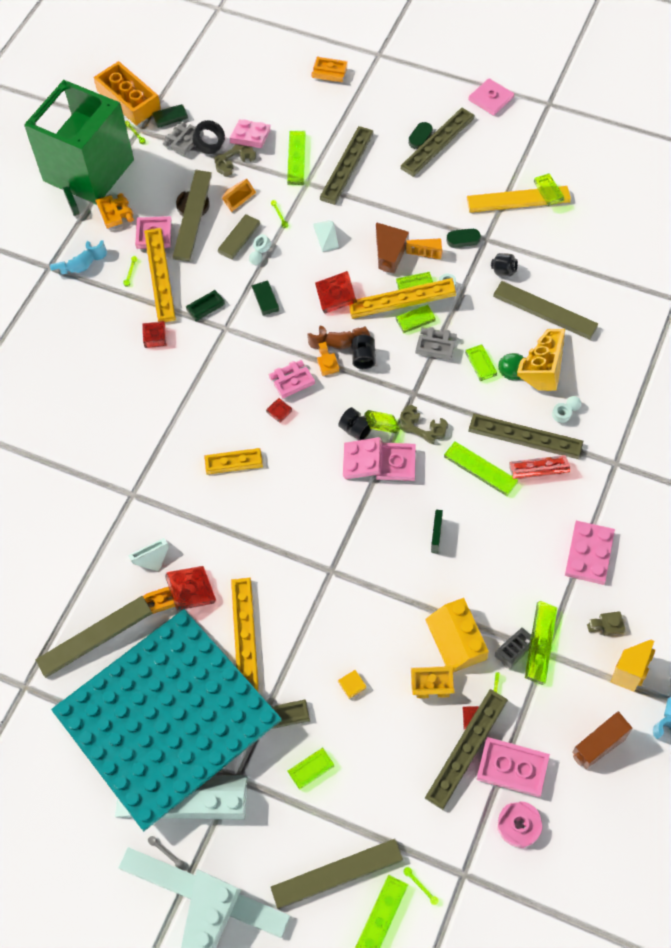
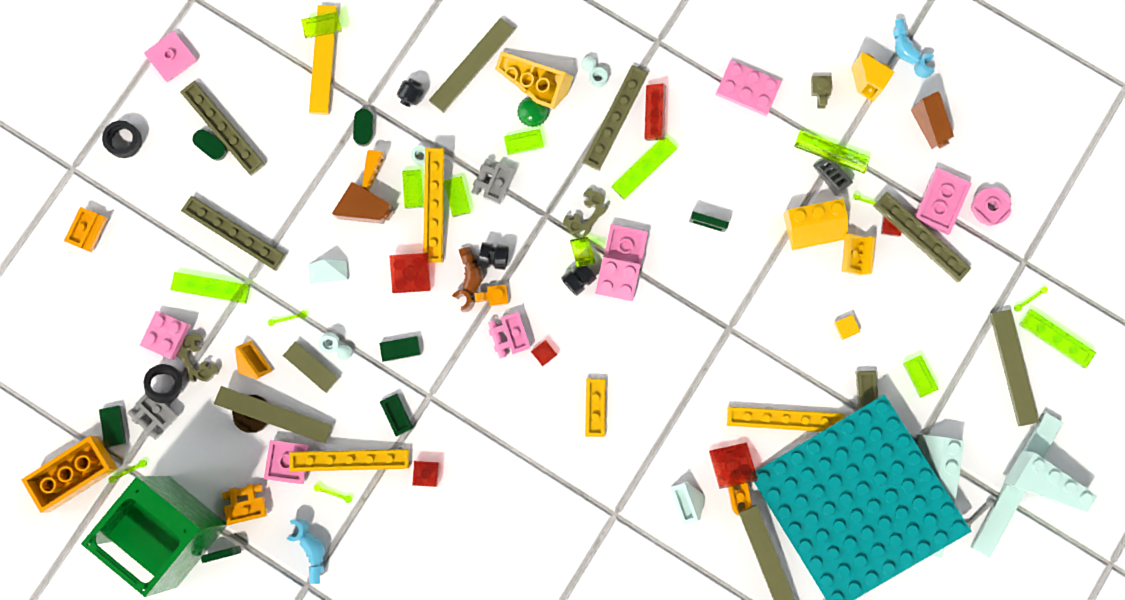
camera: 85 degrees left, 20 degrees up
(410, 86) = (110, 131): none -> black tyre

